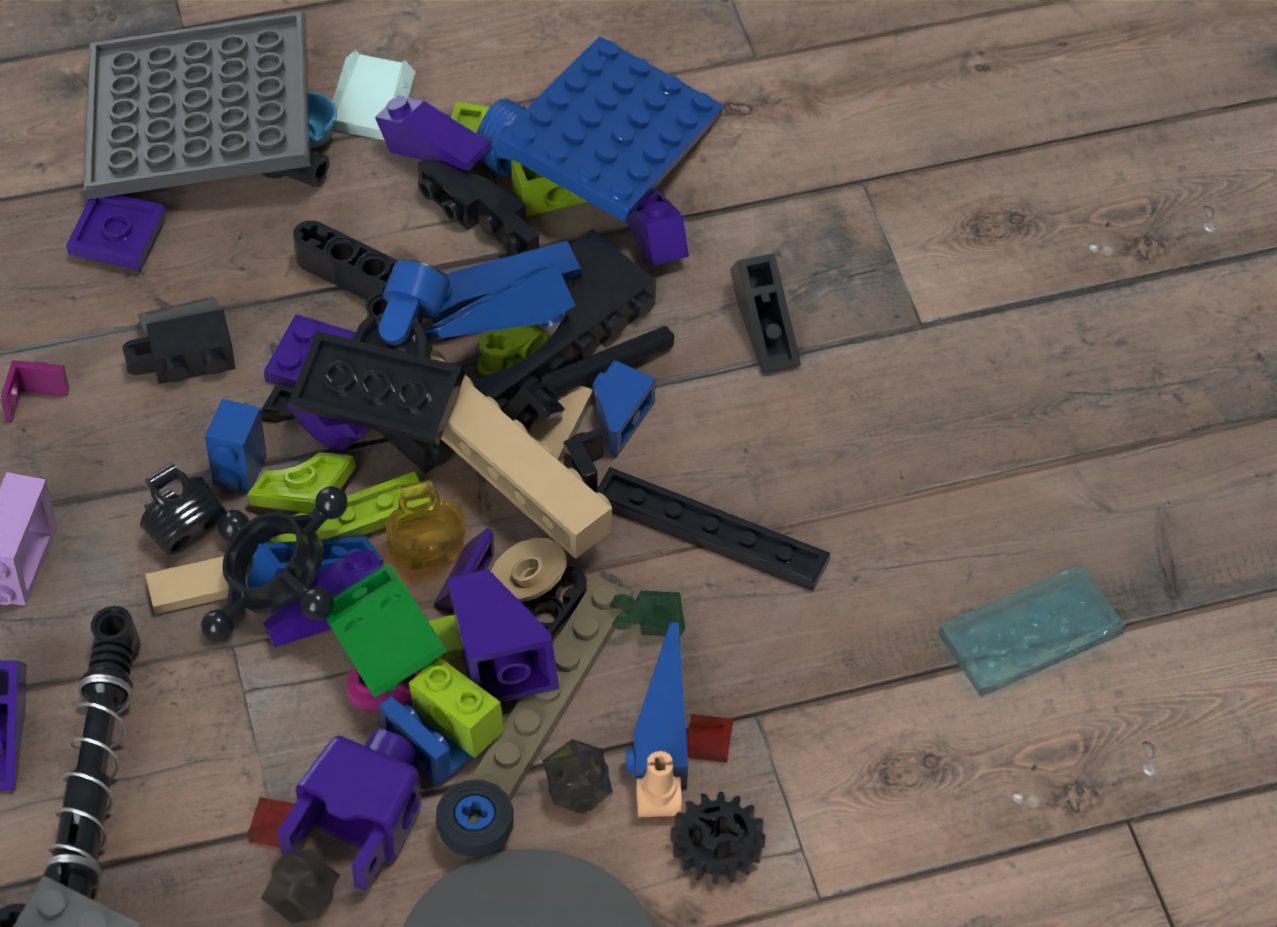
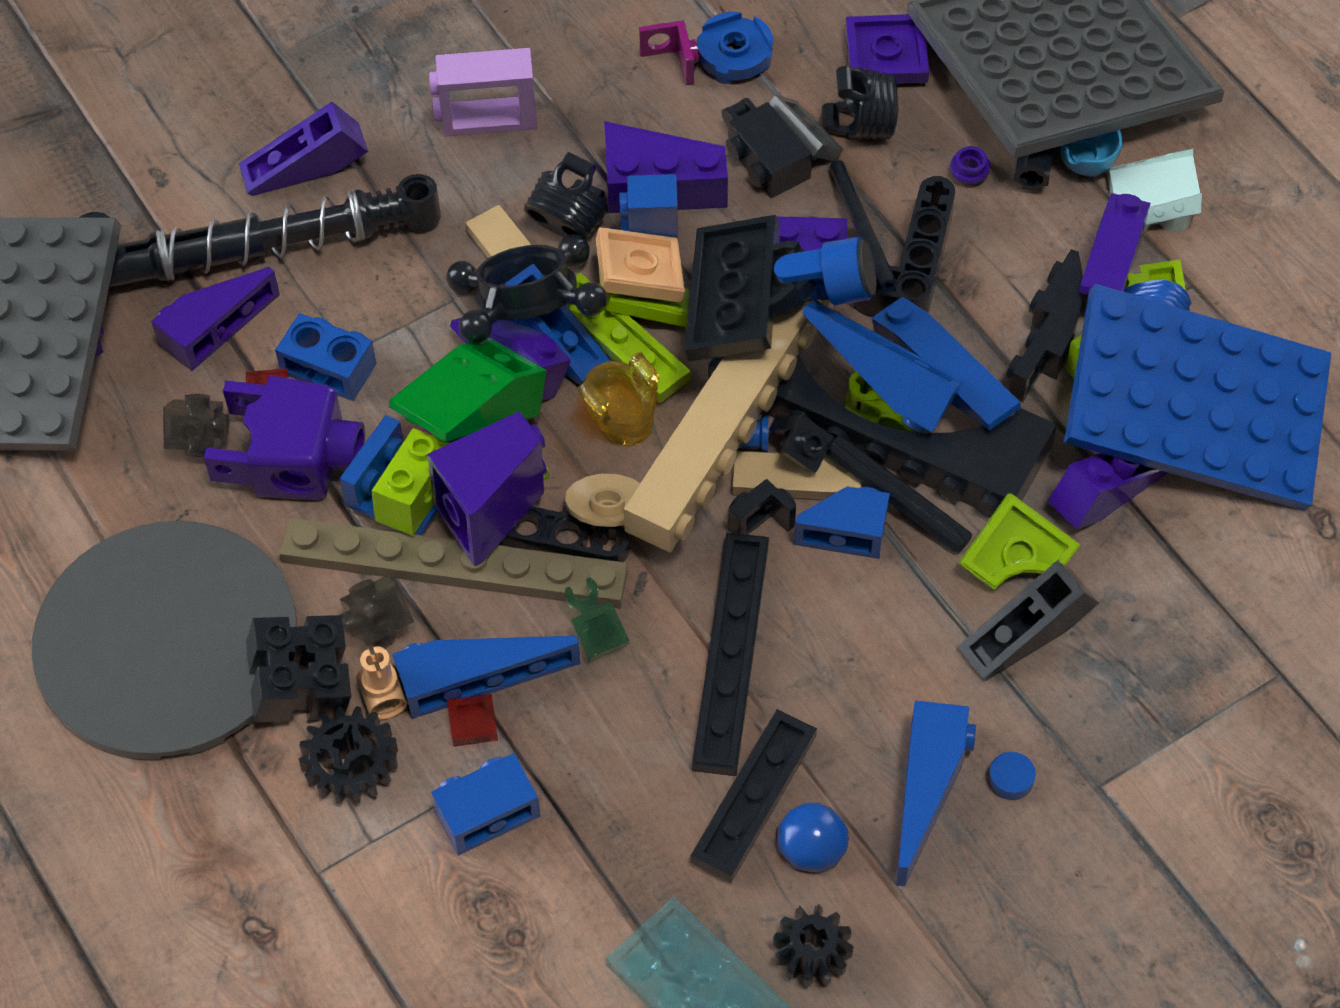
camera: 75 degrees right, 5 degrees up
(49, 320) = (740, 63): none -> blue plate
(170, 857) = (210, 316): none -> dark purple slope
(171, 430) = (697, 165): none -> dark purple wedge
(180, 255) = (869, 98): none -> black piece
(270, 763) = (325, 359): none -> blue brick
(278, 212) = (973, 158): none -> dark purple plate
(289, 469) = (640, 264): none -> light nougat plate
(305, 299) = (862, 224): none -> black piece
(473, 558) = (591, 456): dark purple slope -> none
(489, 831) = (318, 543): black bush -> none
(621, 850) = (297, 667): none -> black brick
(691, 297) = (1014, 543): none -> lime tile
(804, 742) = (485, 803): none -> blue brick
(860, 547) = (753, 796): none -> black plate
(880, 419) = (935, 758): none -> blue slope
(896, 372) = (1012, 775): none -> blue tile
(909, 520) = (812, 837): none -> blue hair
(1012, 543) = (822, 933): none -> black gear

